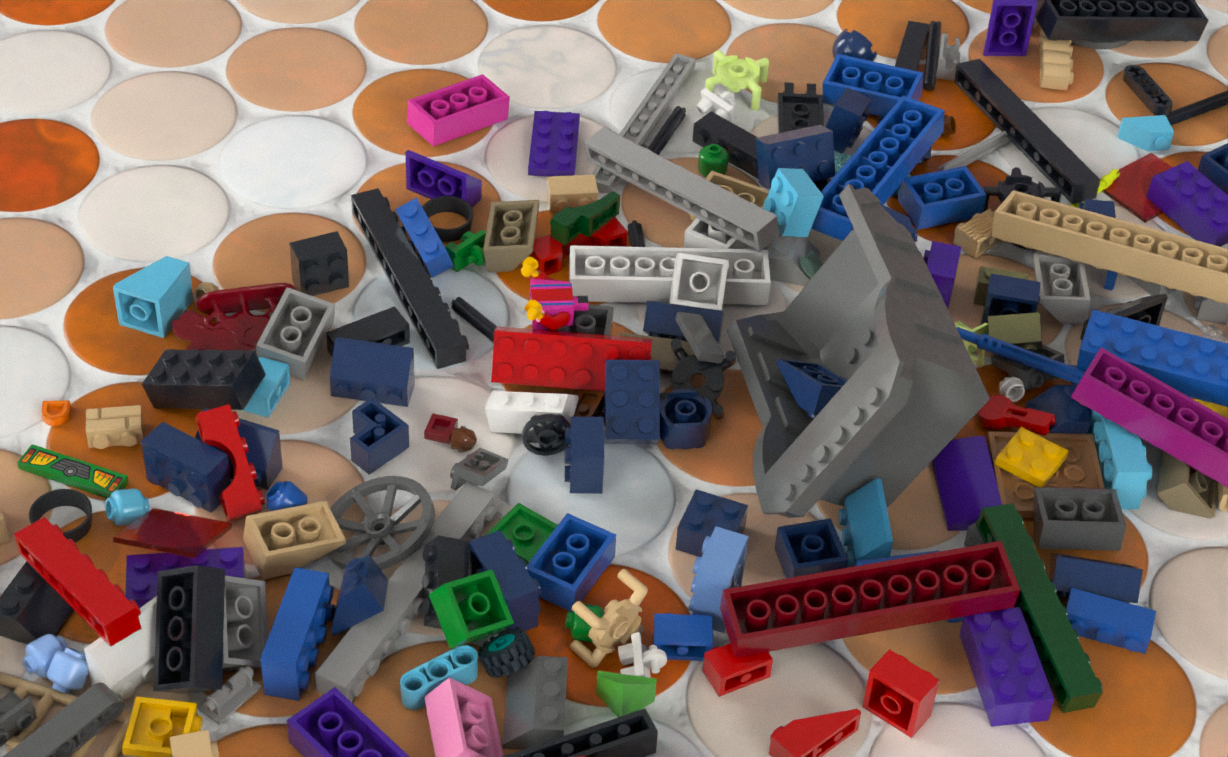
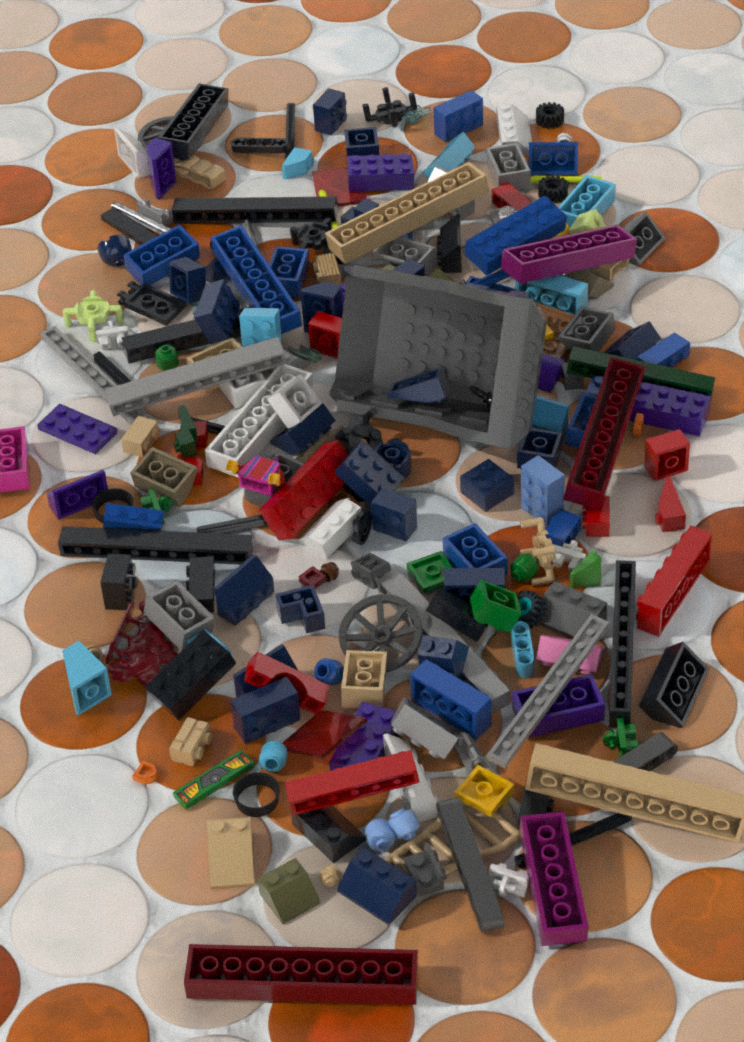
camera: 55 degrees left, 0 degrees up
(189, 630) = (430, 740): black brick -> none
(347, 720) = (547, 691): none -> light grey plate
(699, 337) = (341, 420): dark grey tile -> none
(946, 643) = (638, 424): none -> orange tile

